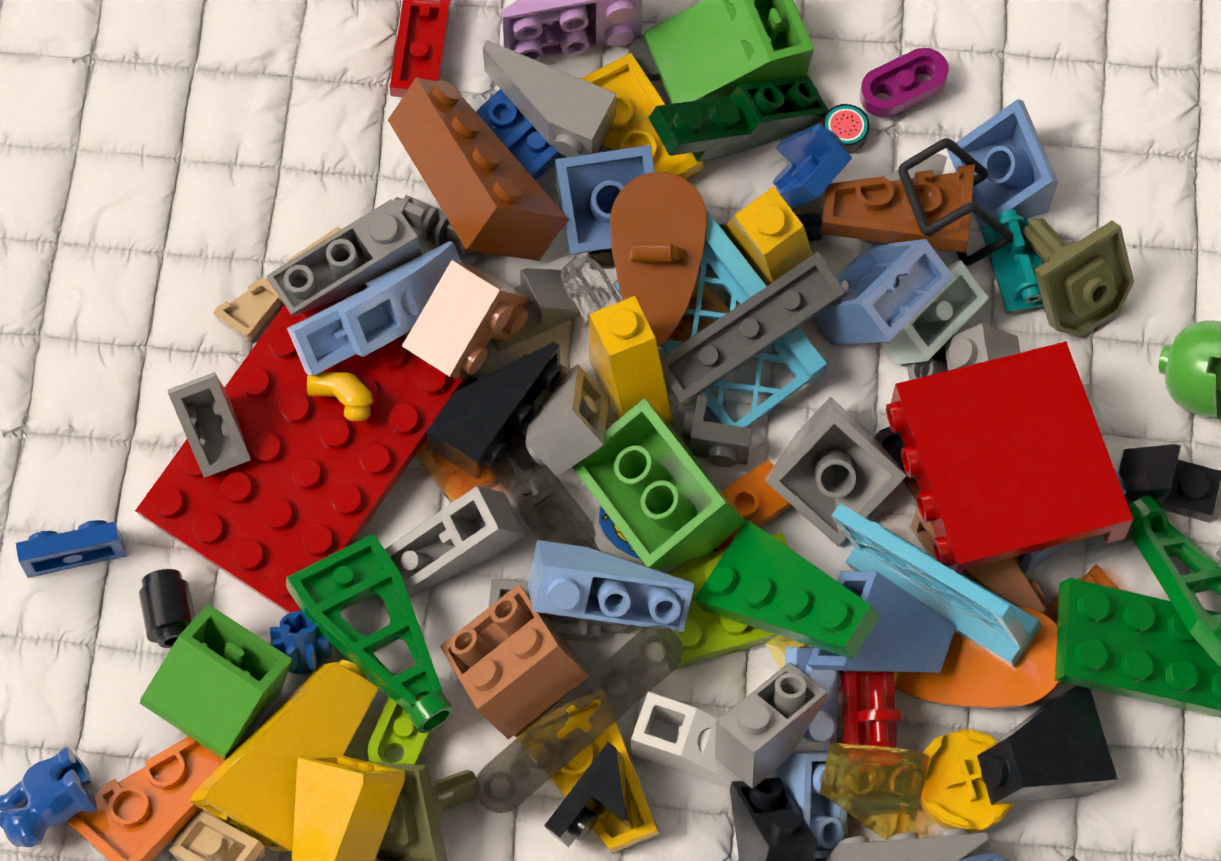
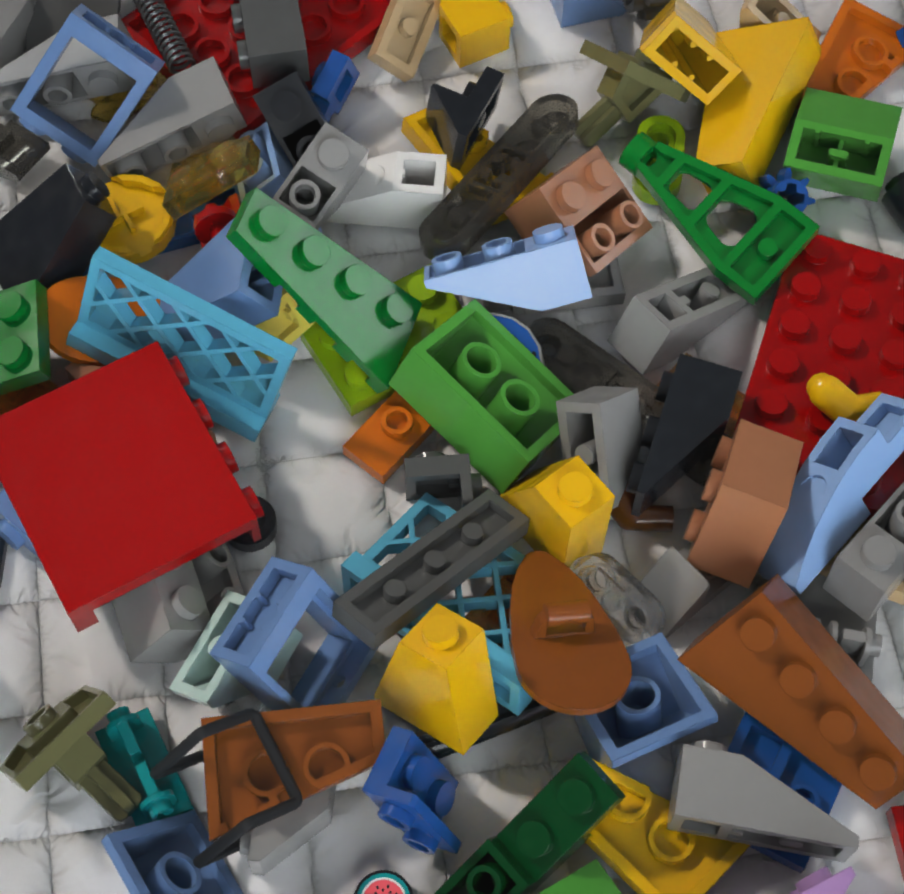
camera: 165 degrees right, 5 degrees down
(833, 464) = (310, 473): light grey slope -> none

